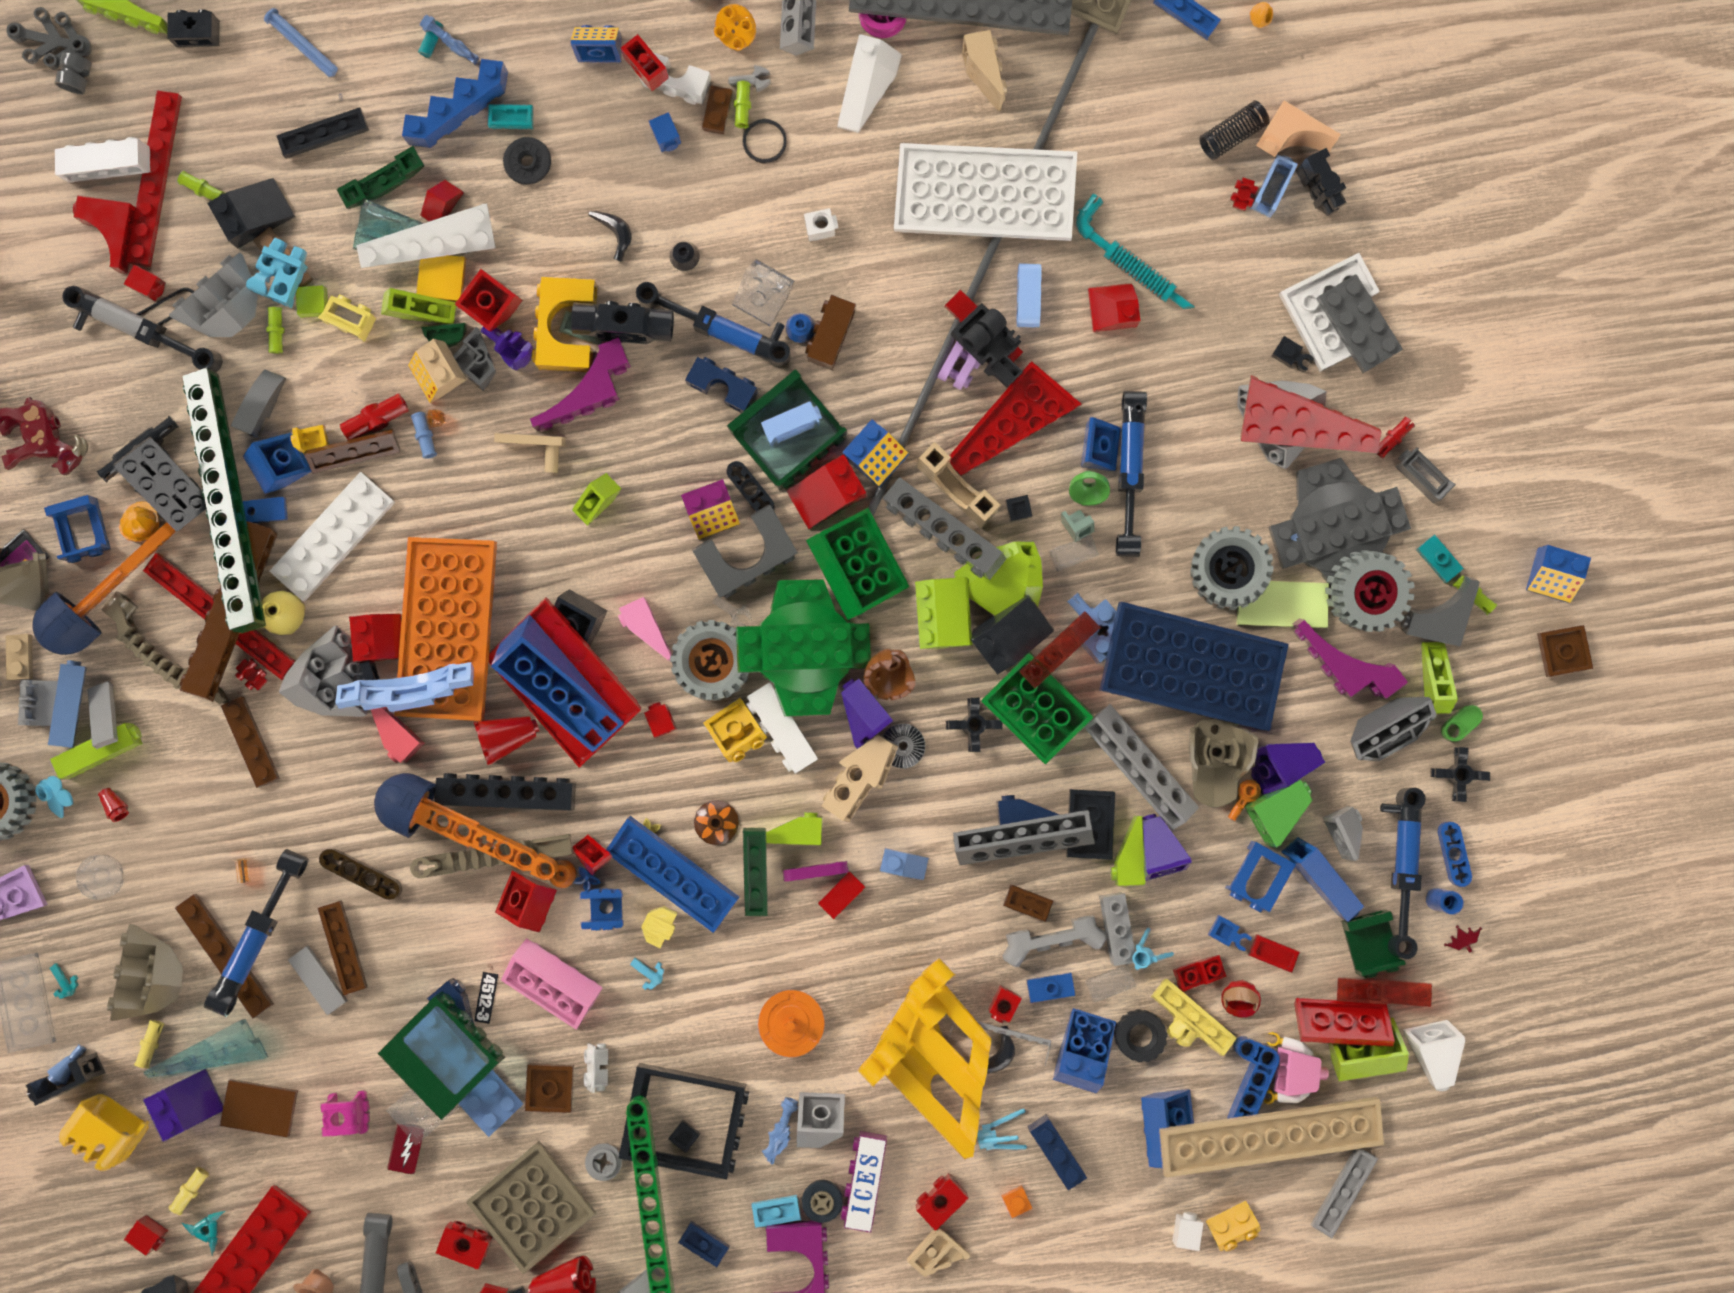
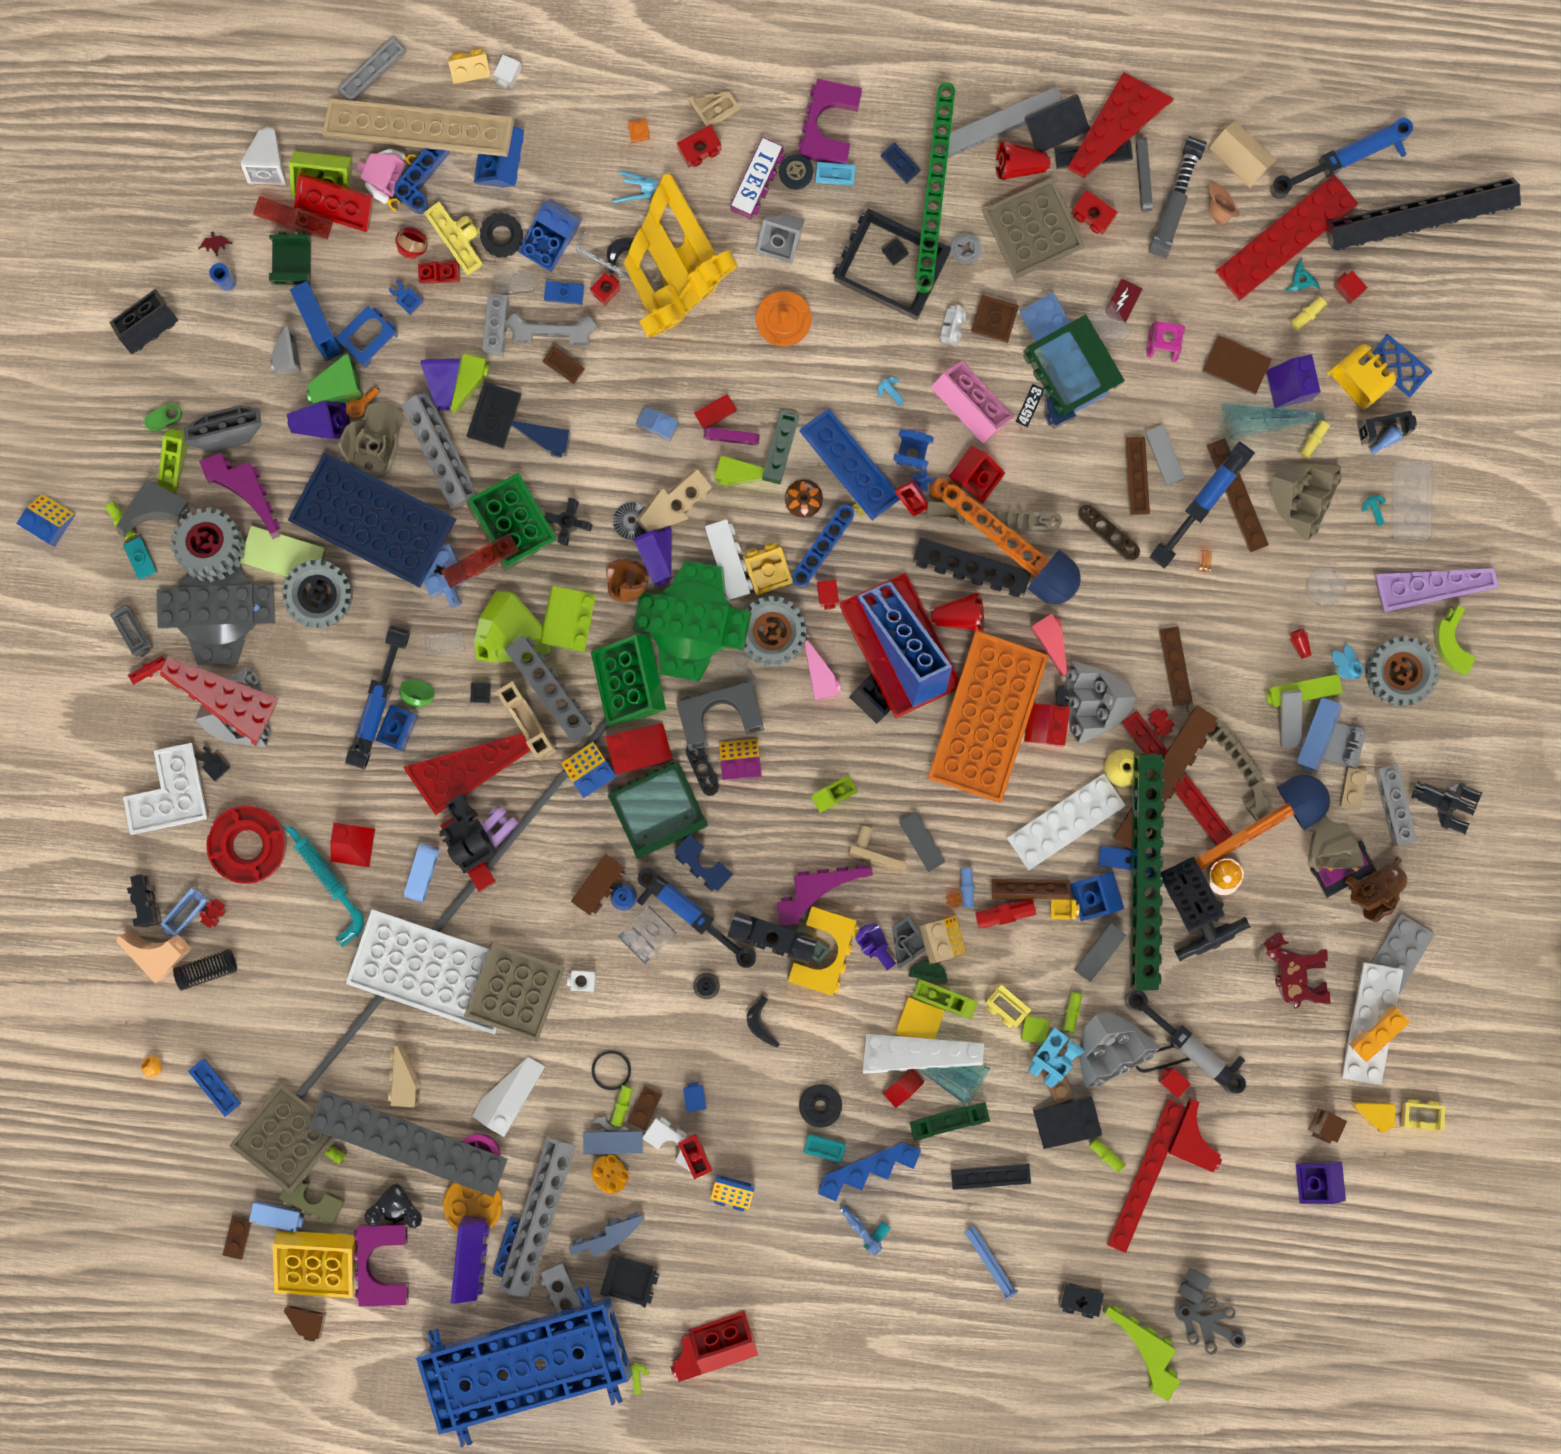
camera: 160 degrees left, 0 degrees up
(55, 1165) = (1414, 362): none -> blue window
(59, 514) = (1292, 883): blue panel -> none
(102, 160) = (1185, 1199): white brick -> none
(407, 691) = (1029, 670): light blue piece -> none
(487, 472) = (921, 842): none -> dark grey tile
(488, 301) = (883, 986): red slope -> none
(659, 925) = (871, 425): light yellow hair -> none
(679, 784) = (826, 537): none -> blue beam
(741, 62) = (613, 1142): none -> sand blue piece
(780, 1135) = (816, 232): medium blue piece -> none
(791, 423) = (652, 814): light blue window -> none
(891, 191) = (514, 991): none -> dark tan plate
(1011, 634) = (516, 586): black slope -> none
(1023, 838) = (552, 417): dark grey brick -> none
(1057, 1152) = (595, 161): dark blue arch -> none
(1077, 524) = (435, 665): sand green panel -> none
(1144, 956) = (480, 295): medium azure plant -> none
(1237, 249) = (221, 847): none -> red piece
(1274, 953) = (373, 272): red tile -> none
(1359, 323) = (148, 772): dark grey plate -> none
(1406, 862) = (242, 318): black piece -> none
(1453, 871) = (207, 319): blue beam -> none
(1460, 762) = (173, 388): black pin -> none
(1517, 826) = (143, 321): none -> black slope
(1565, 651) = (59, 454): reddish brown plate -> none

